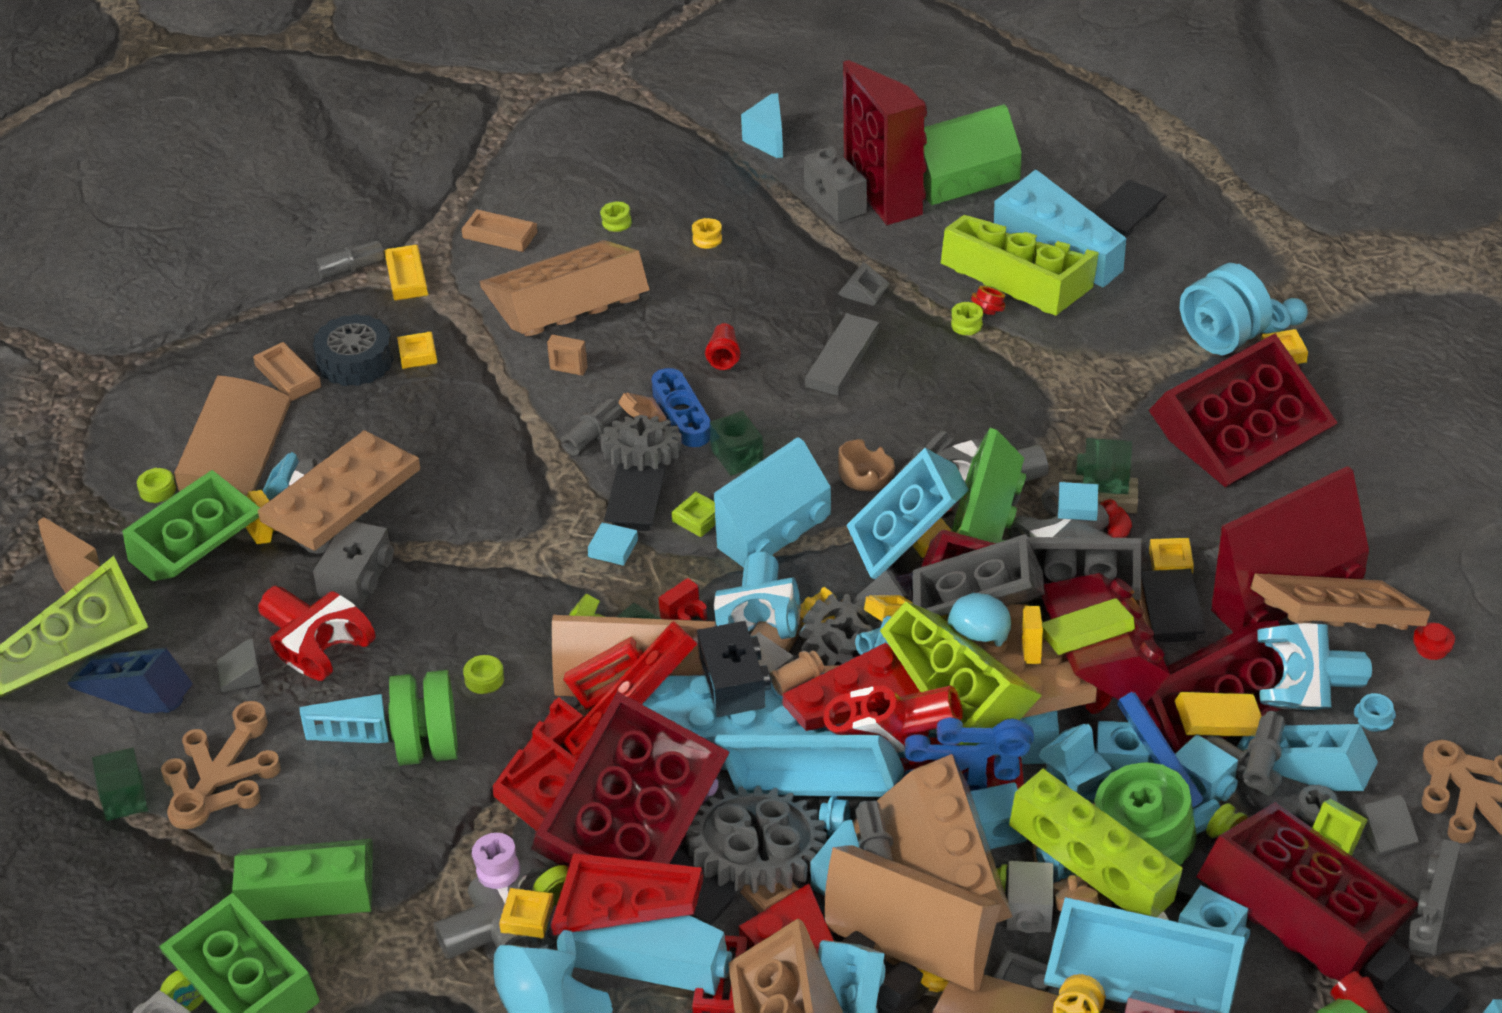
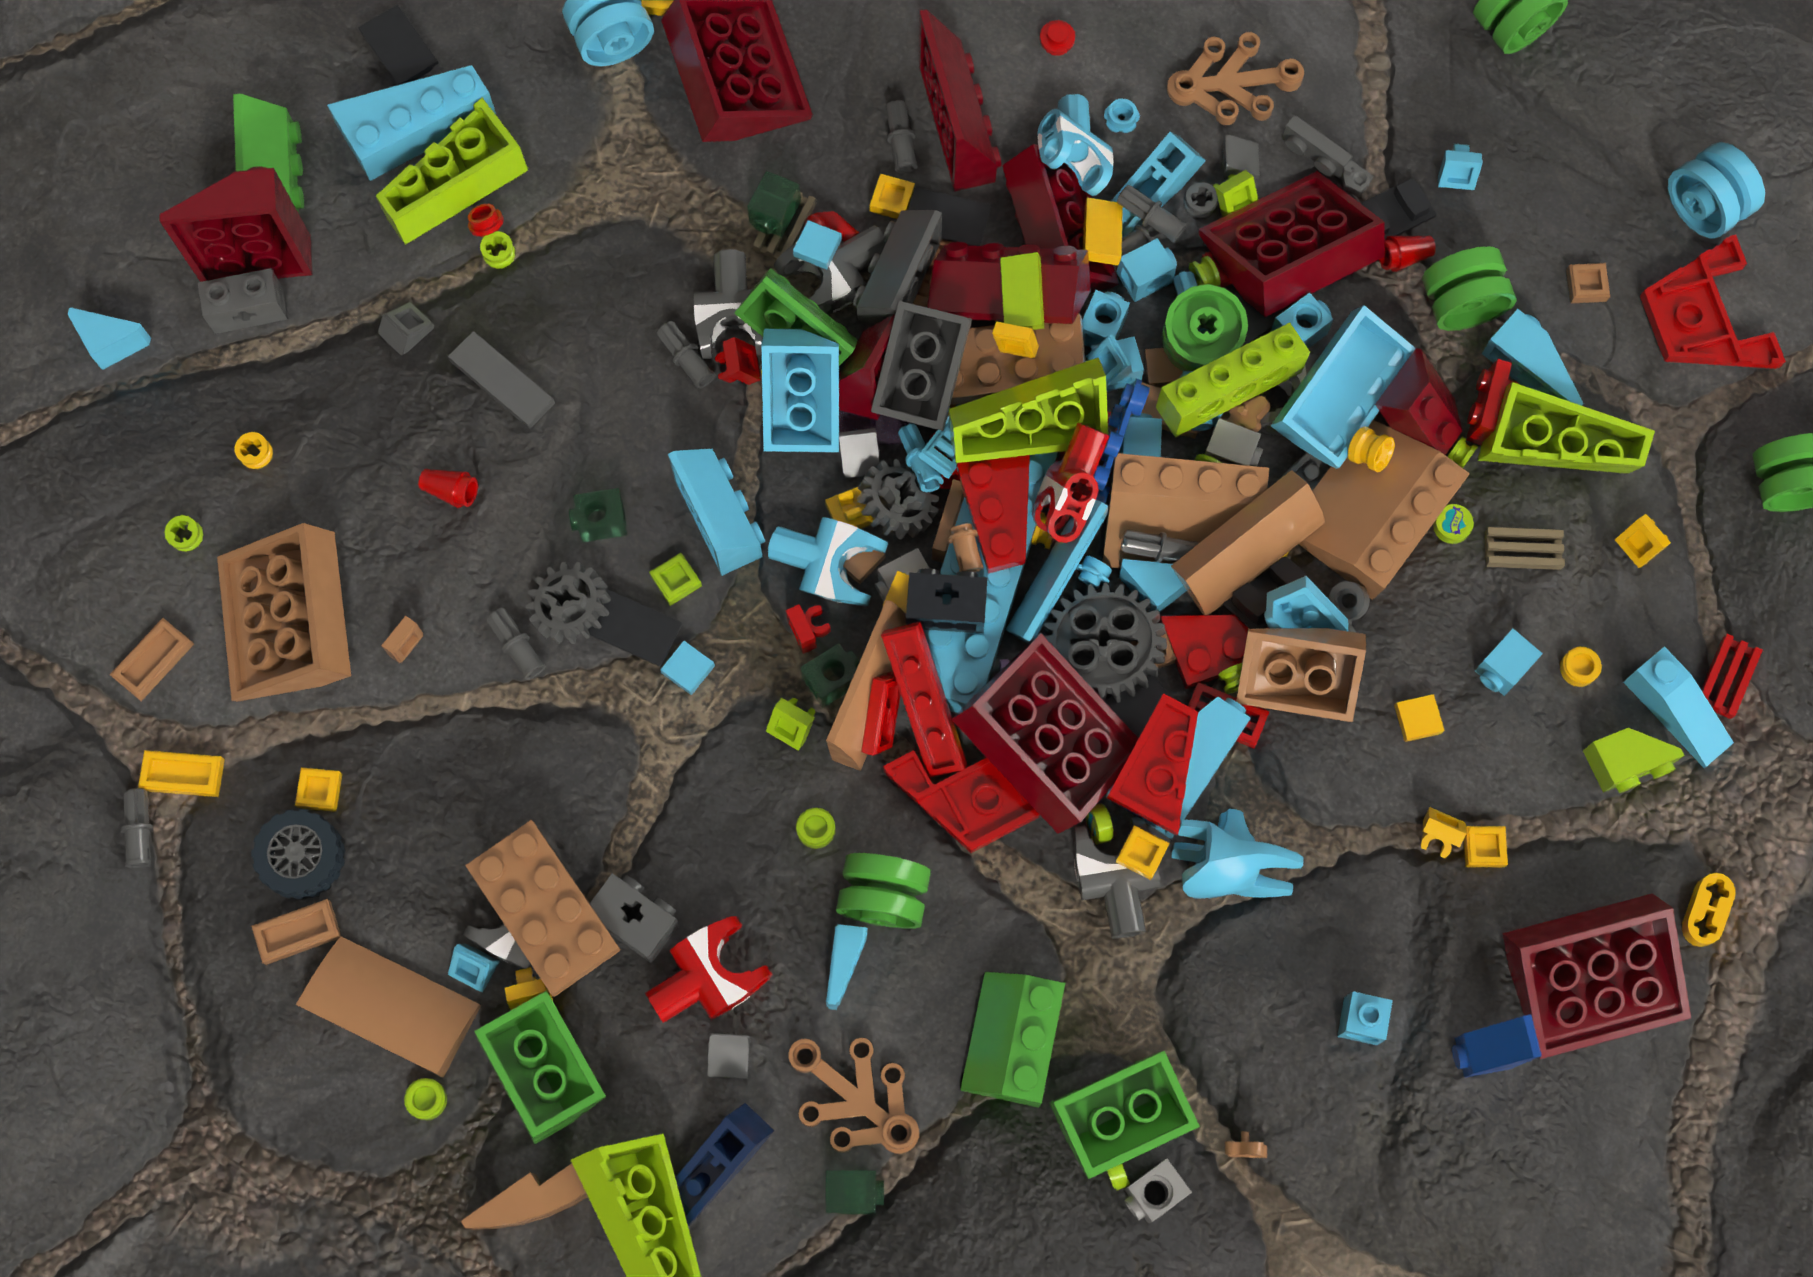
camera: 75 degrees left, 30 degrees up
(496, 860) = (1080, 870): lavender wheel -> none
(641, 405) = (514, 587): medium nougat tile -> none
(681, 395) = (506, 541): blue beam -> none
(864, 468) = (683, 409): medium nougat hair -> none
(883, 605) = (896, 446): yellow tile -> none
(981, 618) = (984, 375): medium azure hair -> none
(1154, 740) = (1138, 292): blue tile -> none
(1339, 601) = (1017, 87): medium nougat plate -> none

